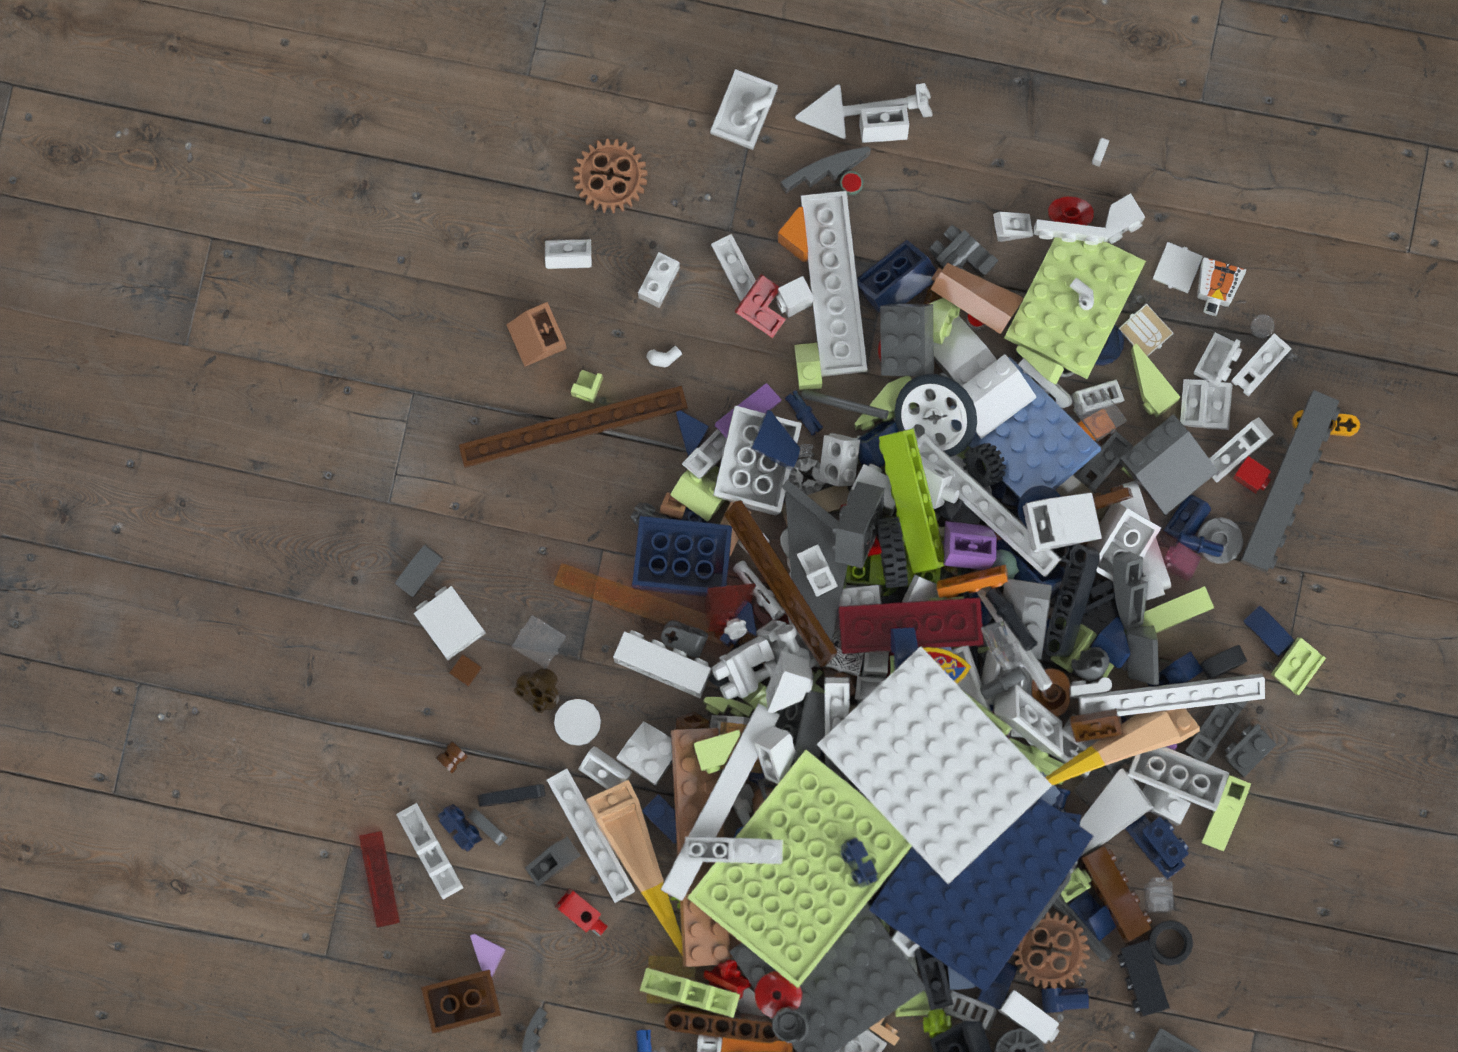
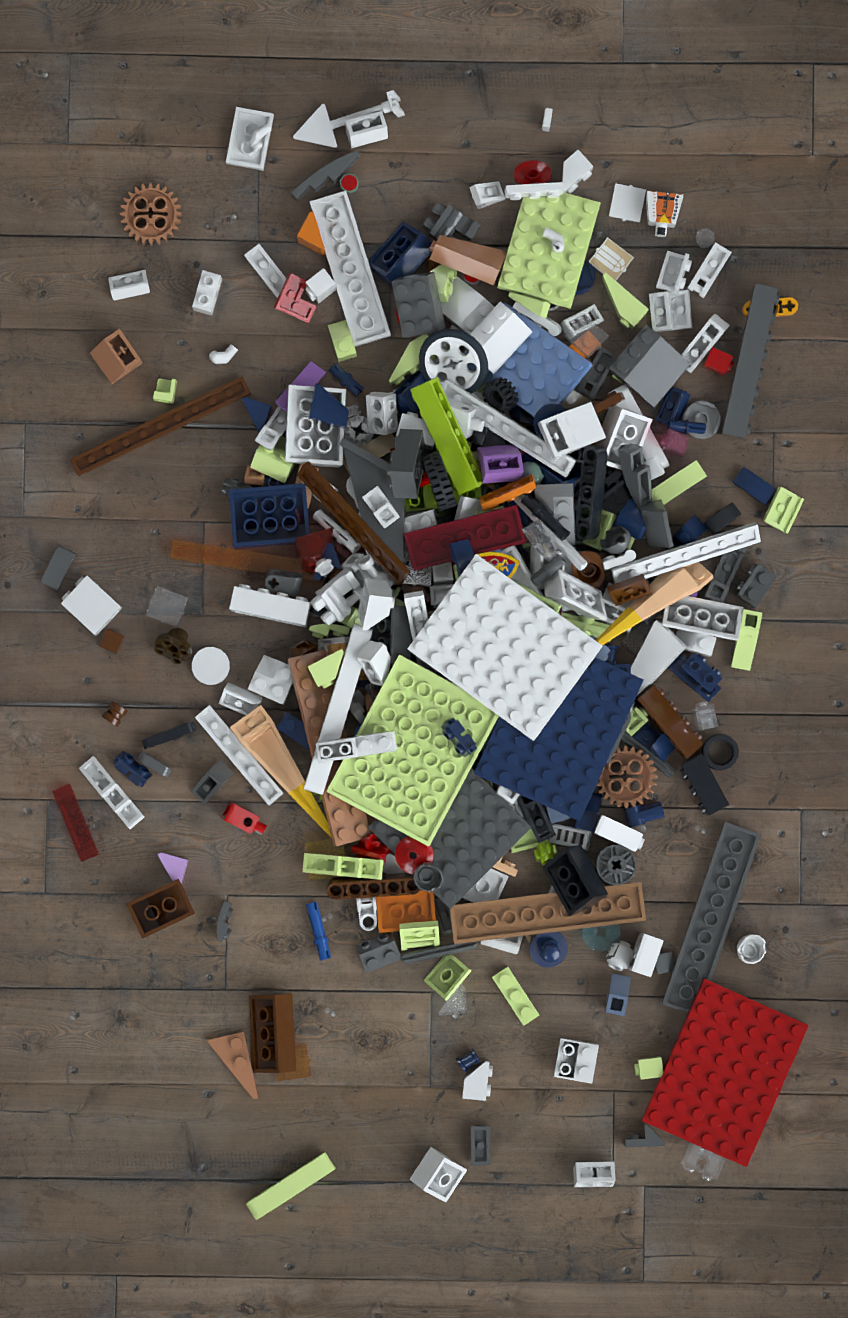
camera: 15 degrees left, 5 degrees up
(845, 404) = (378, 366): dark grey bar -> none

